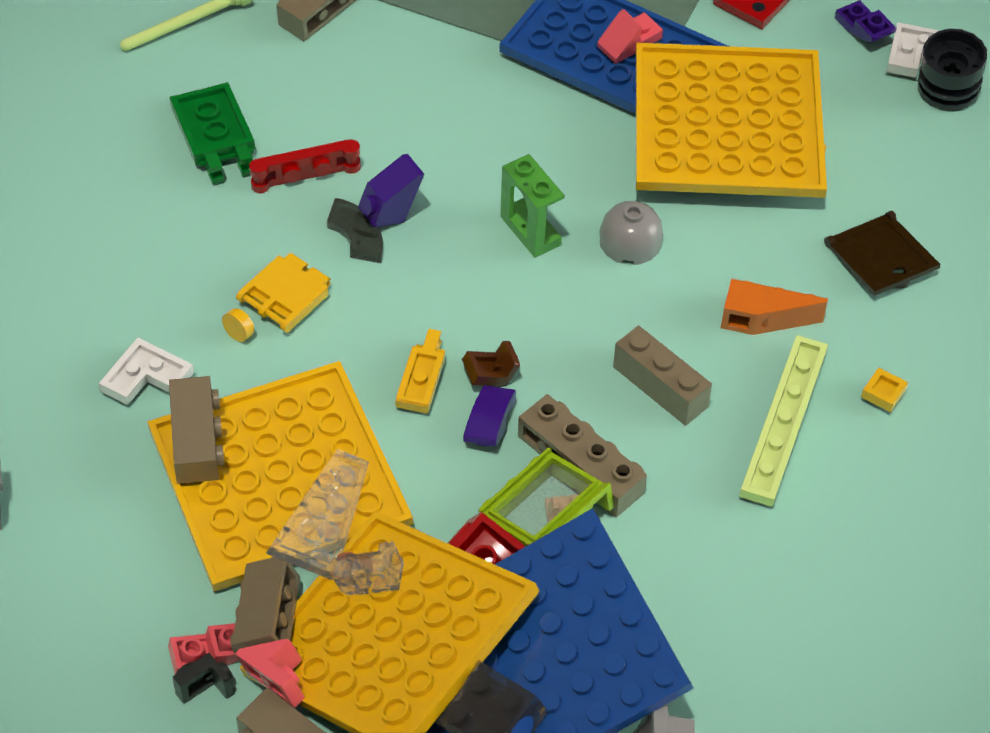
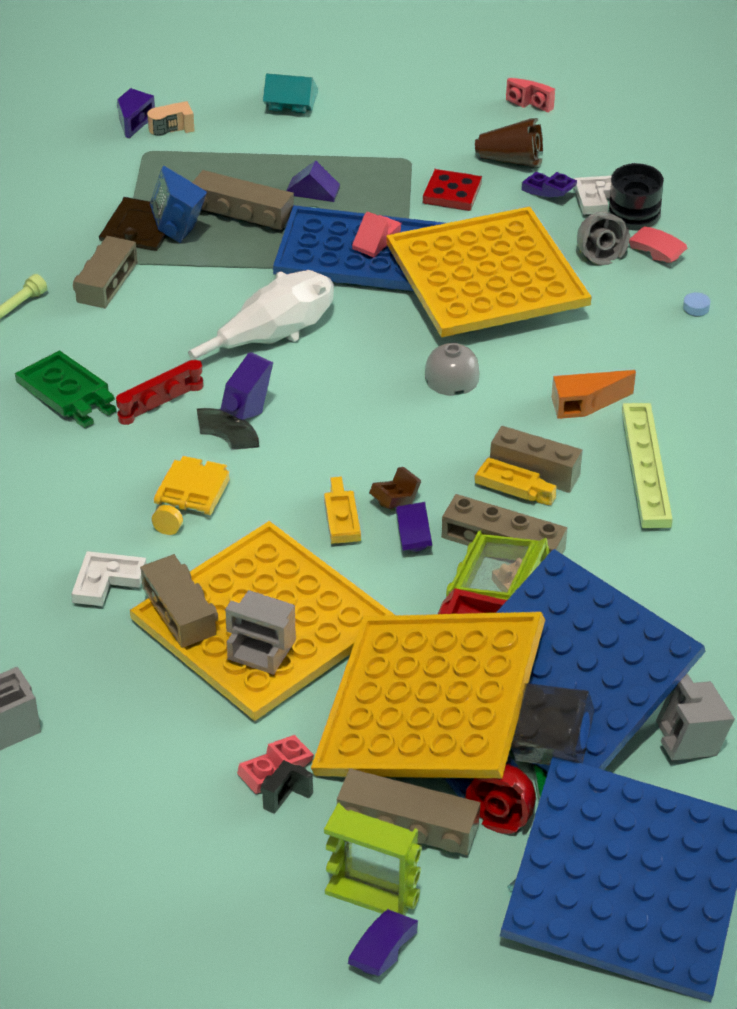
camera: 20 degrees left, 10 degrees down
(254, 496) = (260, 631): none -> light grey plate
(265, 603) = (313, 716): dark tan brick -> none
(273, 668) = (348, 750): coral slope -> none
(323, 517) = (326, 631): clear wing -> none
(368, 571) = (388, 655): clear leg -> none
(470, 104) = (275, 312): none -> white piece
(528, 215) = (367, 387): bright green panel -> none
(627, 395) = (515, 481): none -> yellow hinge
(879, 249) = (650, 334): dark brown container -> none
(884, 389) = (709, 423): yellow plate -> none
(885, 113) = (603, 238): none -> light grey cylinder
(950, 137) = (659, 243): none -> coral slope
(955, 229) = (696, 304): none -> light blue tile

